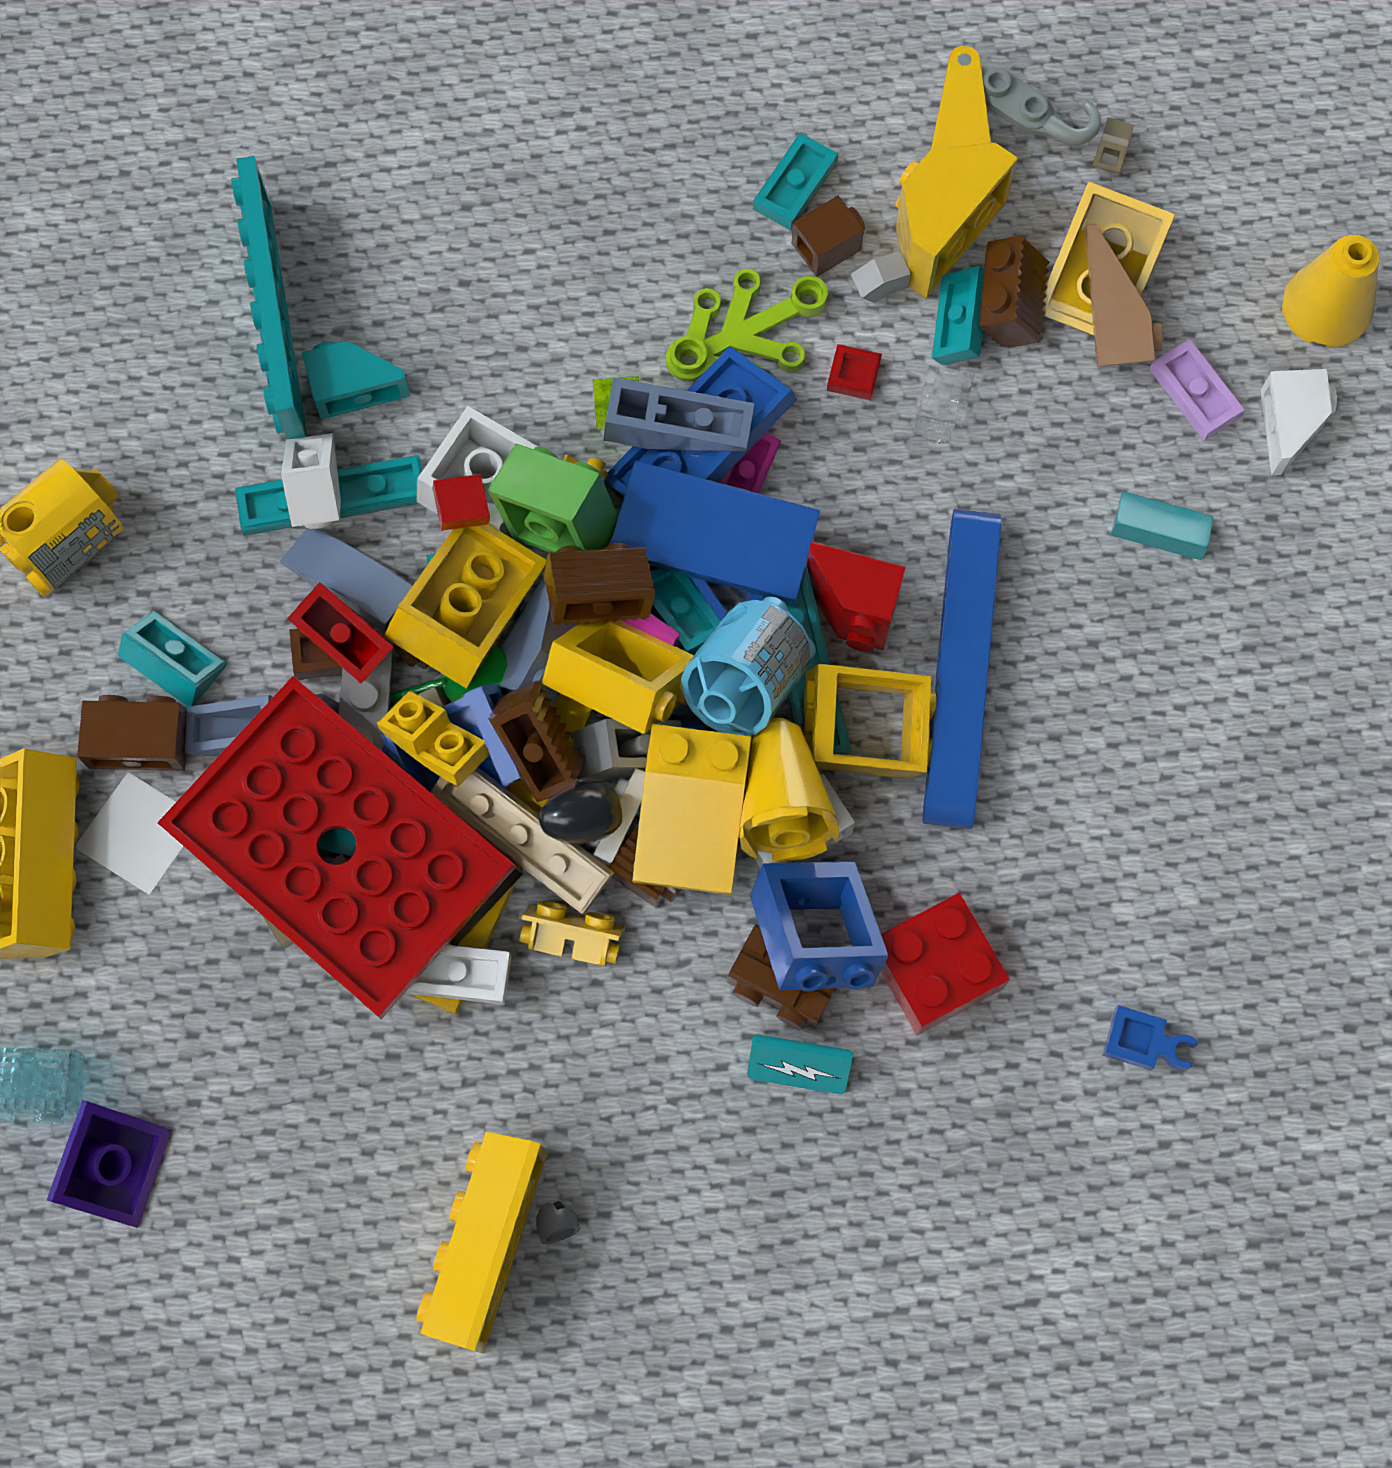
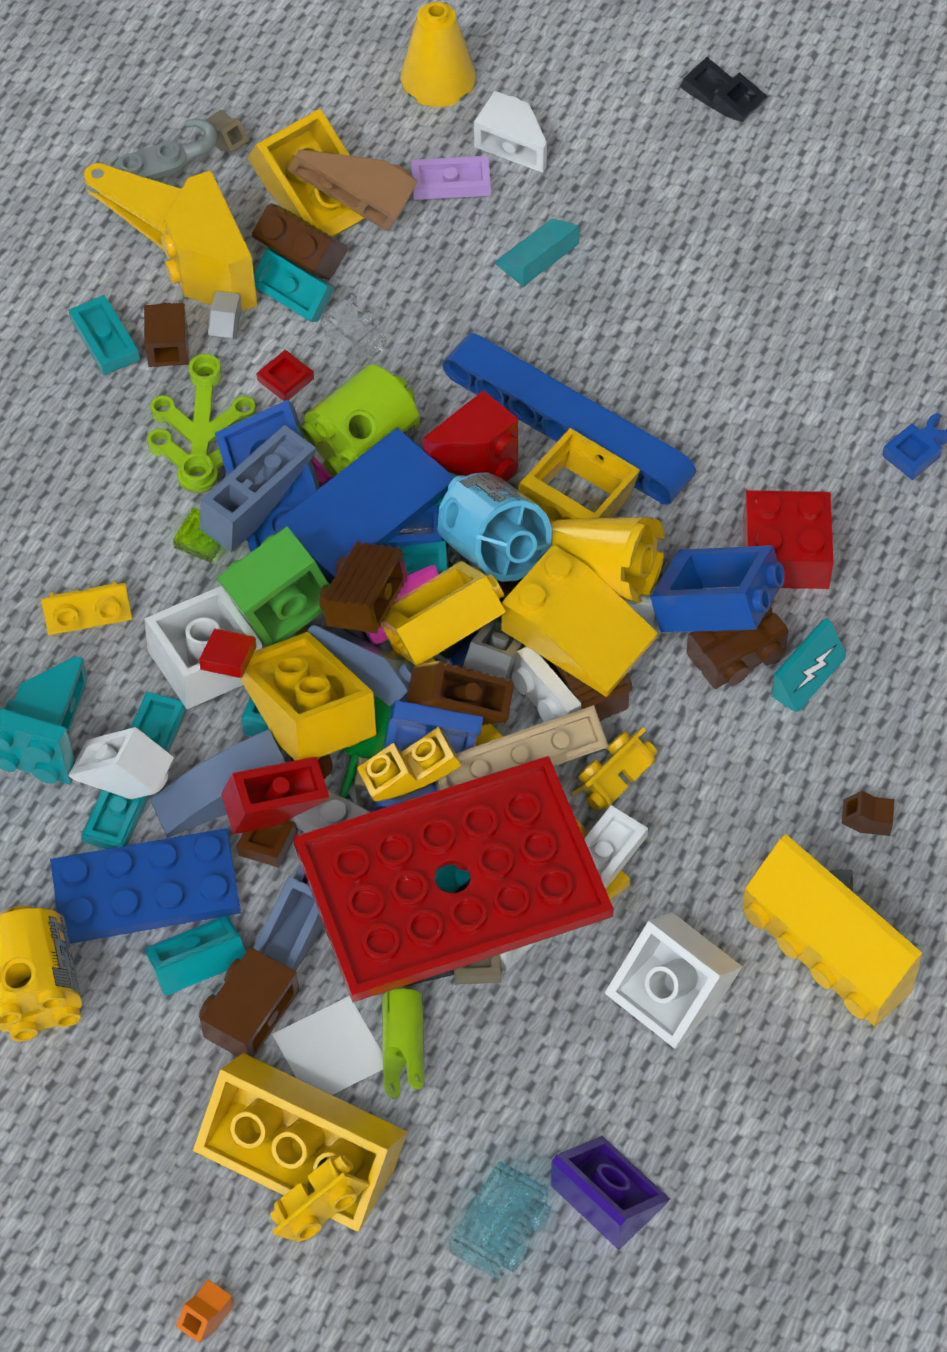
camera: 60 degrees left, 15 degrees down
(165, 896) = (402, 1039): none -> lime piece
(214, 573) = (145, 885): none -> blue plate
(365, 1111) = (672, 978): none -> white slope
(468, 335) = (86, 608): none -> yellow hinge
(582, 814) = (536, 693): black animal -> none
(656, 1210) = (868, 814): none -> reddish brown piece
(840, 468) = (360, 416): none -> lime cylinder

